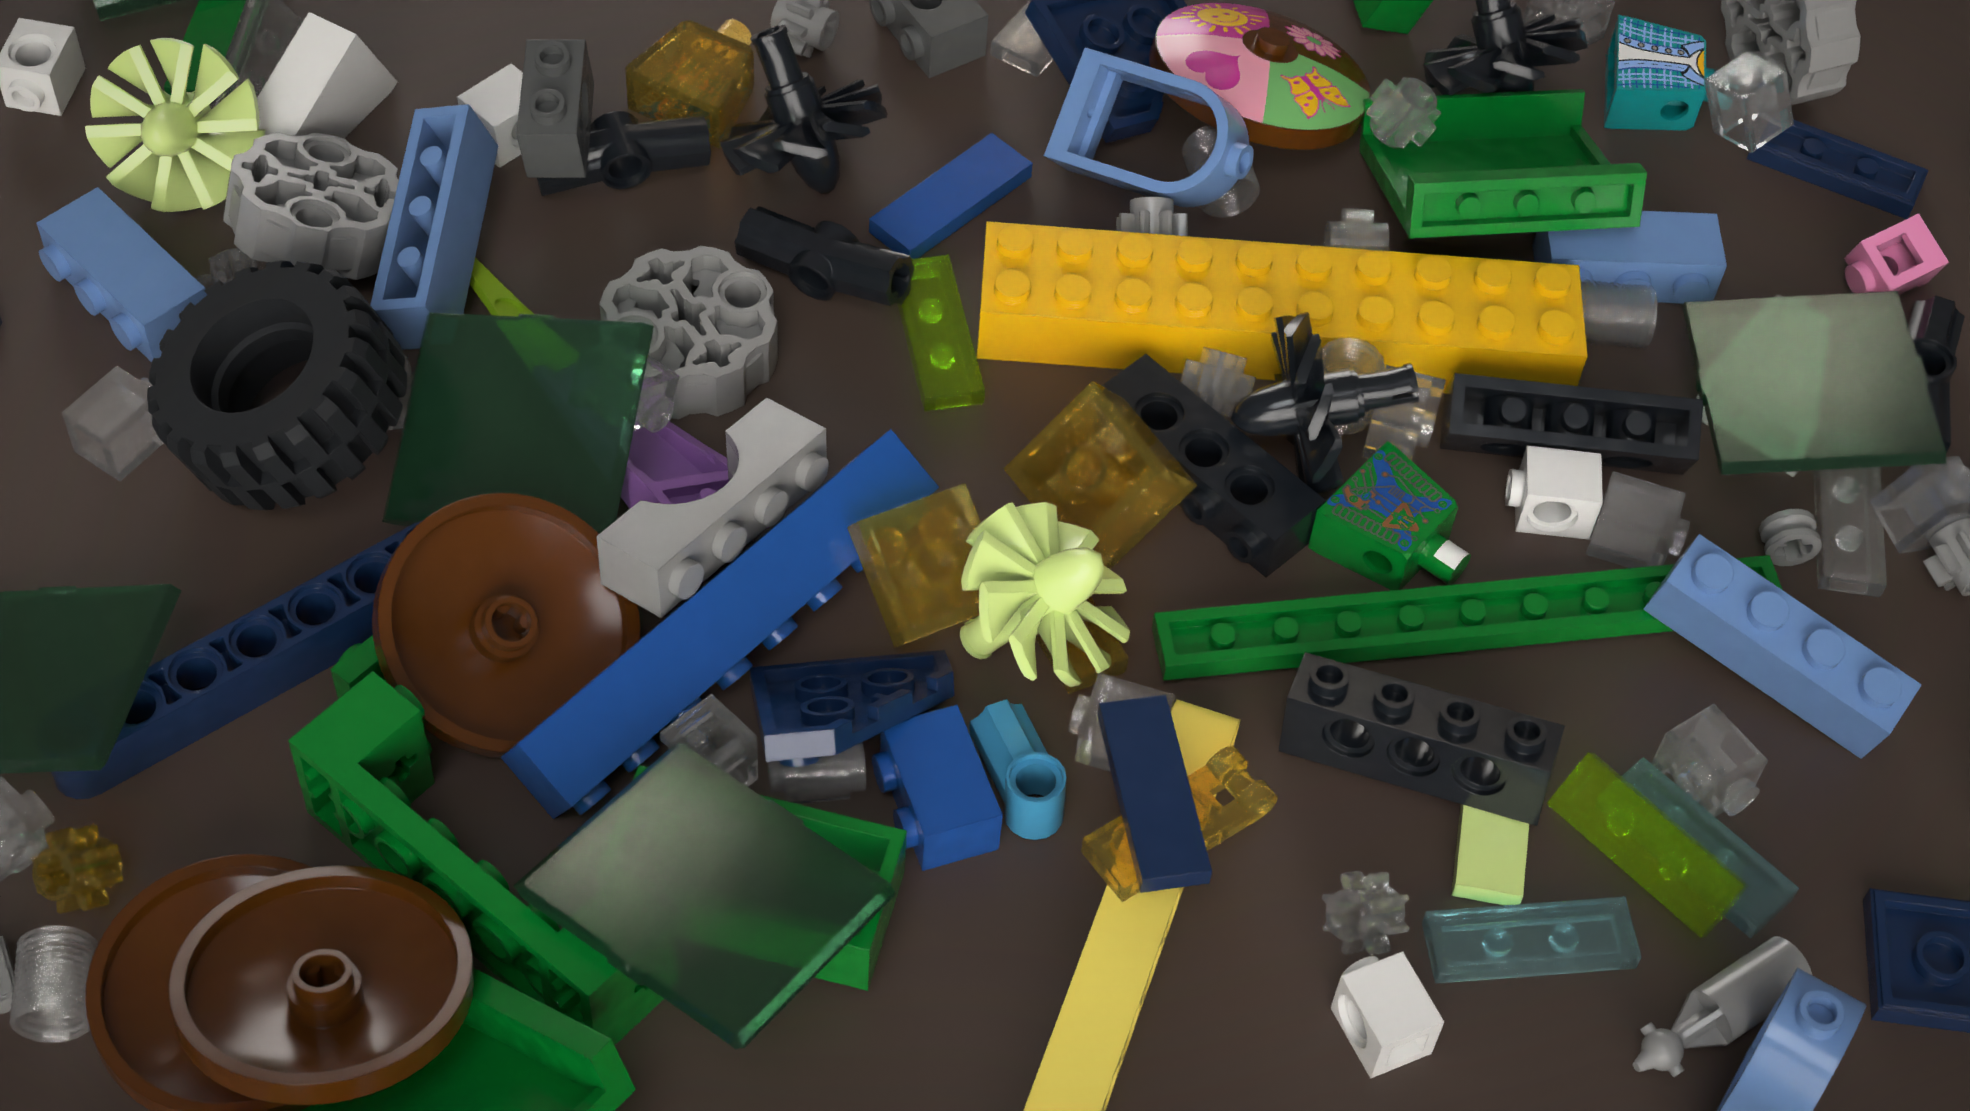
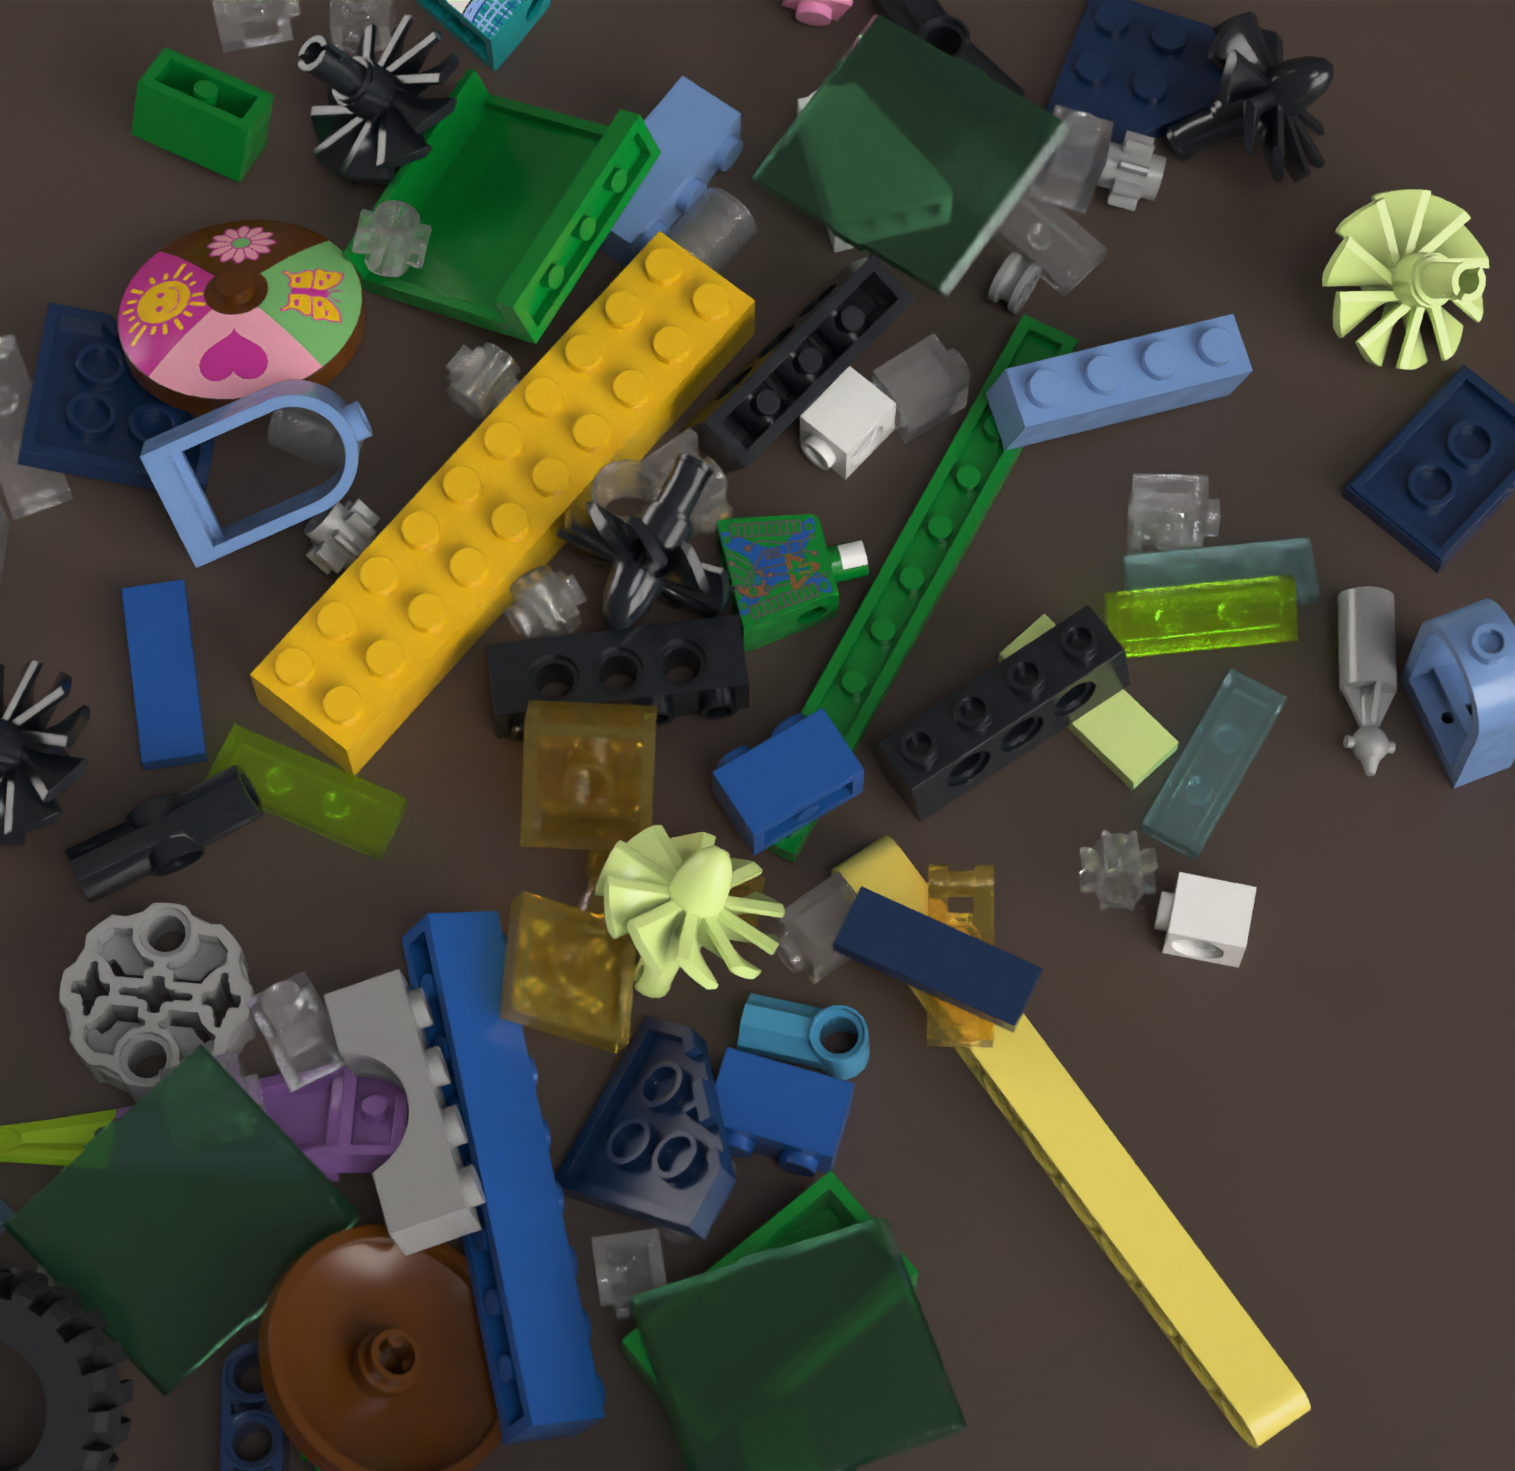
camera: 50 degrees left, 15 degrees up
(721, 402) = (296, 1031): none -> clear brick
(1216, 611) = (786, 780): none -> blue brick

